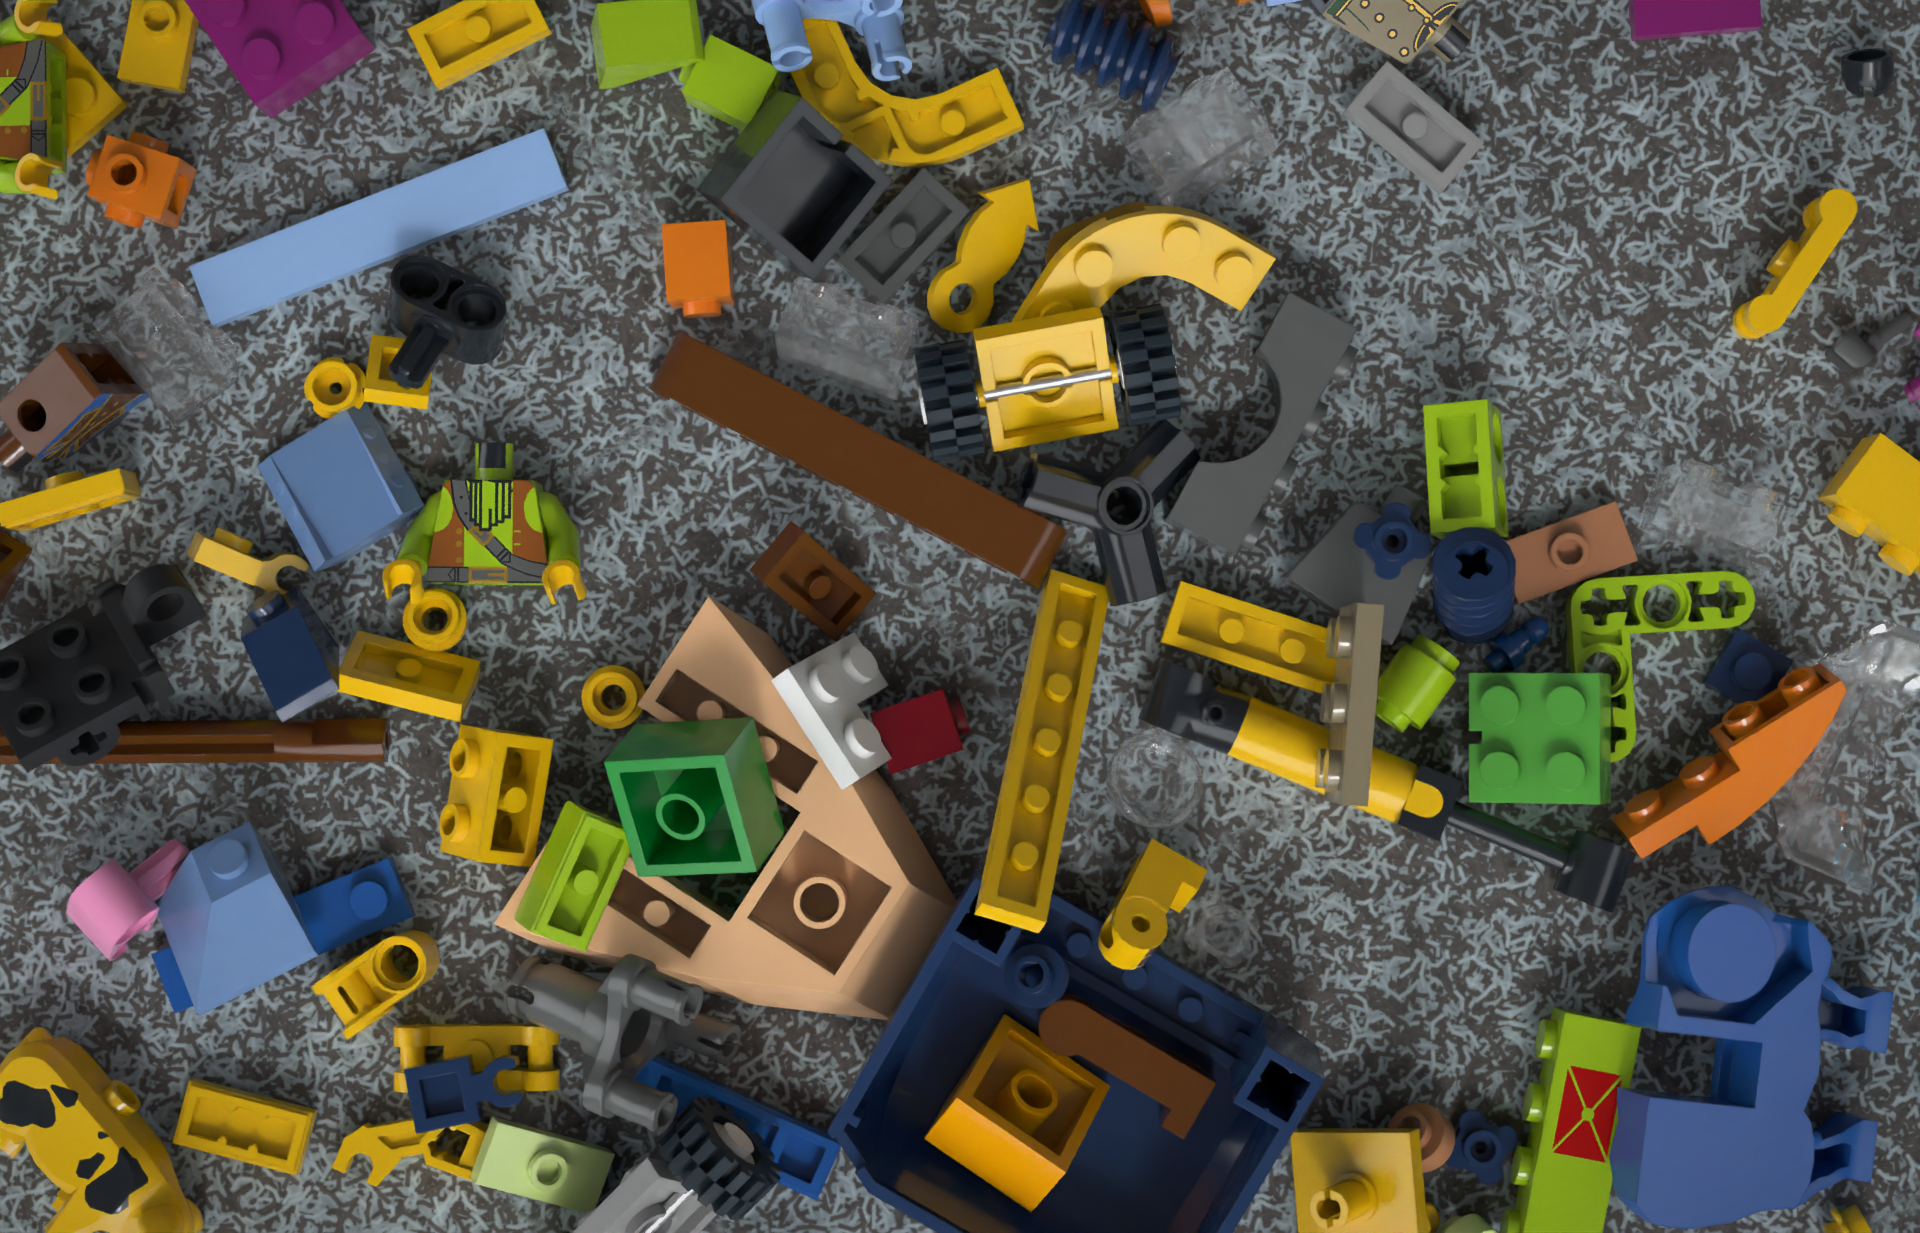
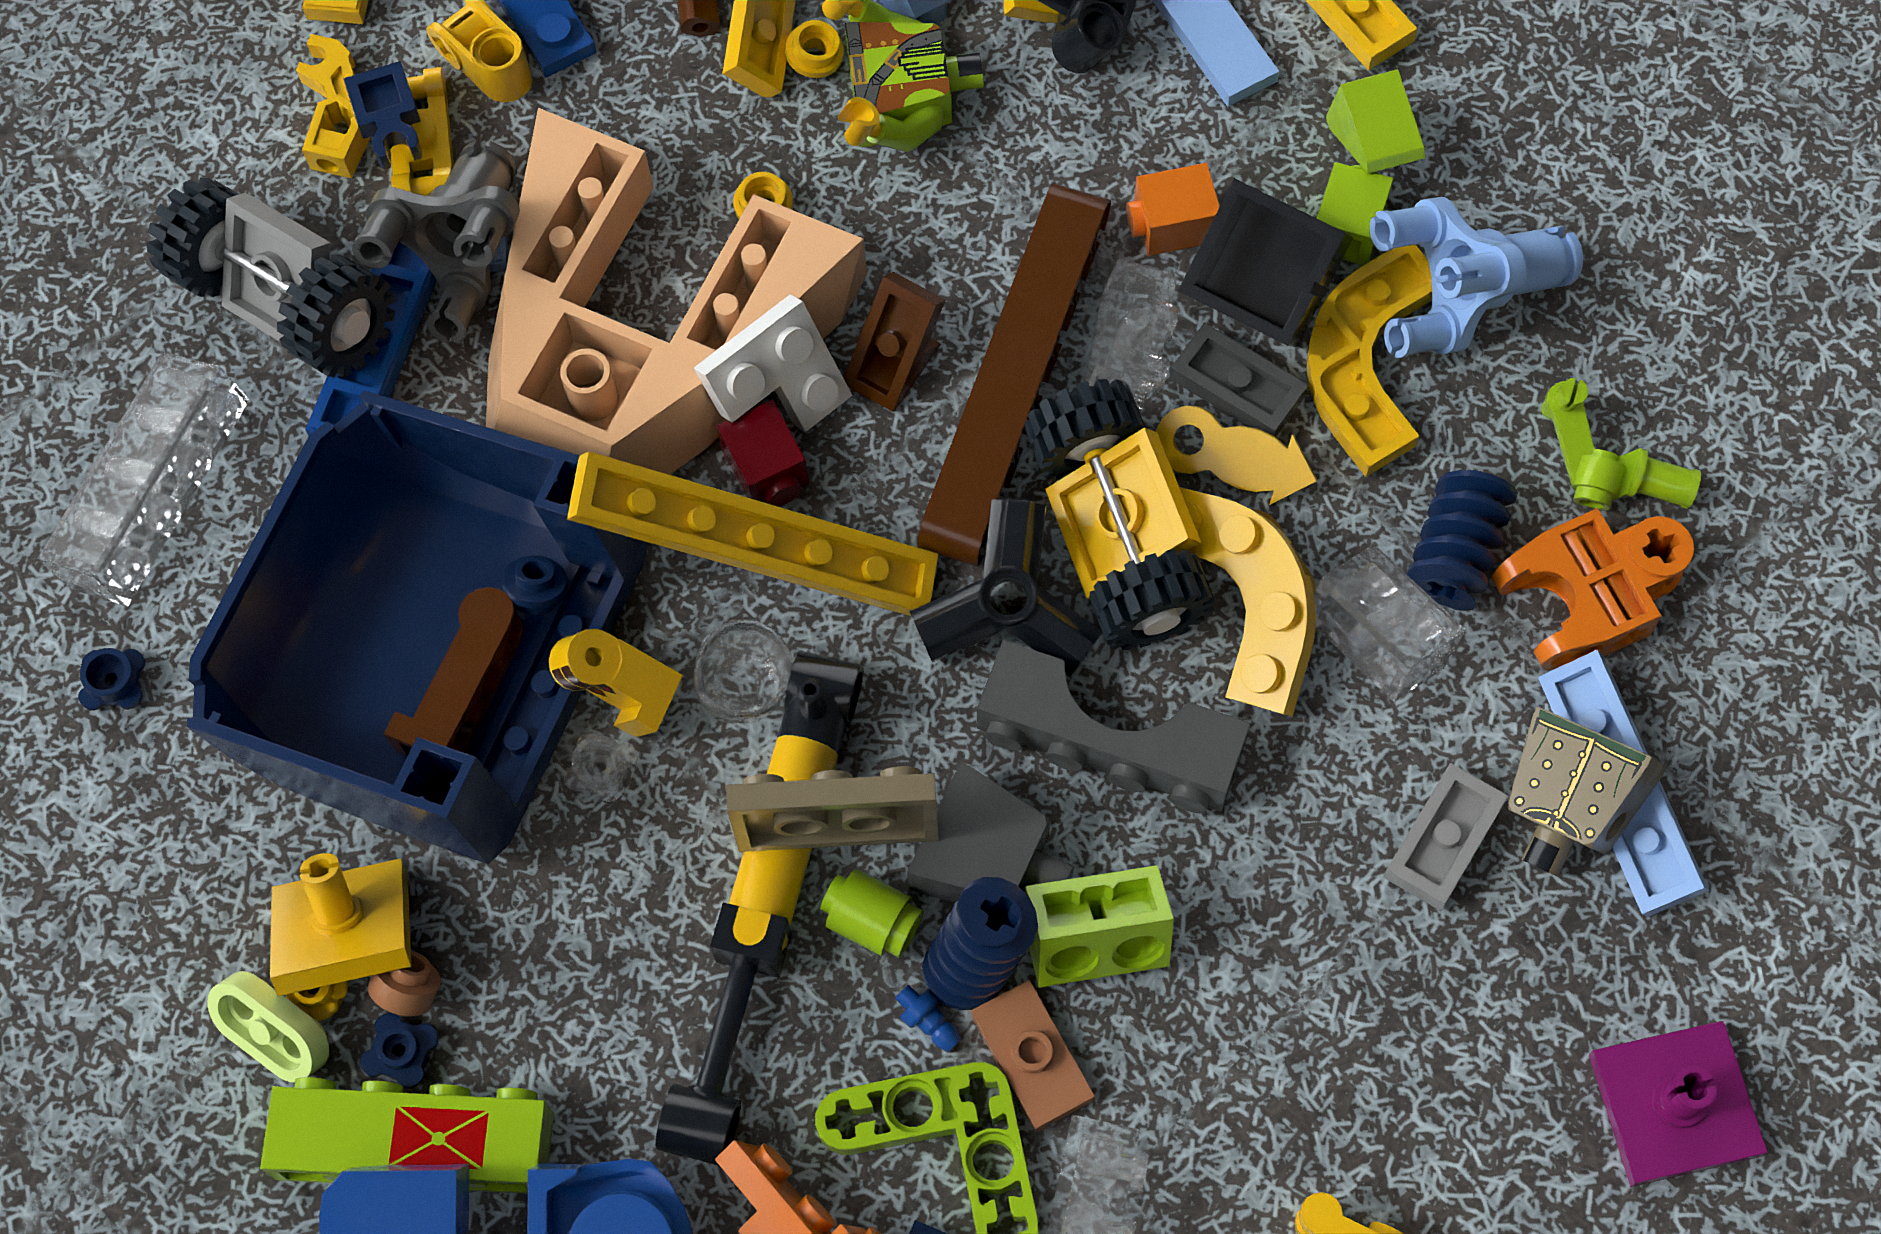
camera: 85 degrees right, 20 degrees down
(495, 795) = (659, 108): yellow brick -> none
(542, 1165) = (326, 187): yellowish green plate -> none
(574, 877) = (586, 164): lime slope -> none
(695, 797) = (670, 240): green brick -> none
(1018, 1114) = (398, 585): light orange slope -> none
(1249, 637) = (900, 732): yellow plate -> none
(1390, 559) = (1011, 828): dark blue plate -> none
(1540, 738) = (829, 1038): bright green piece -> none

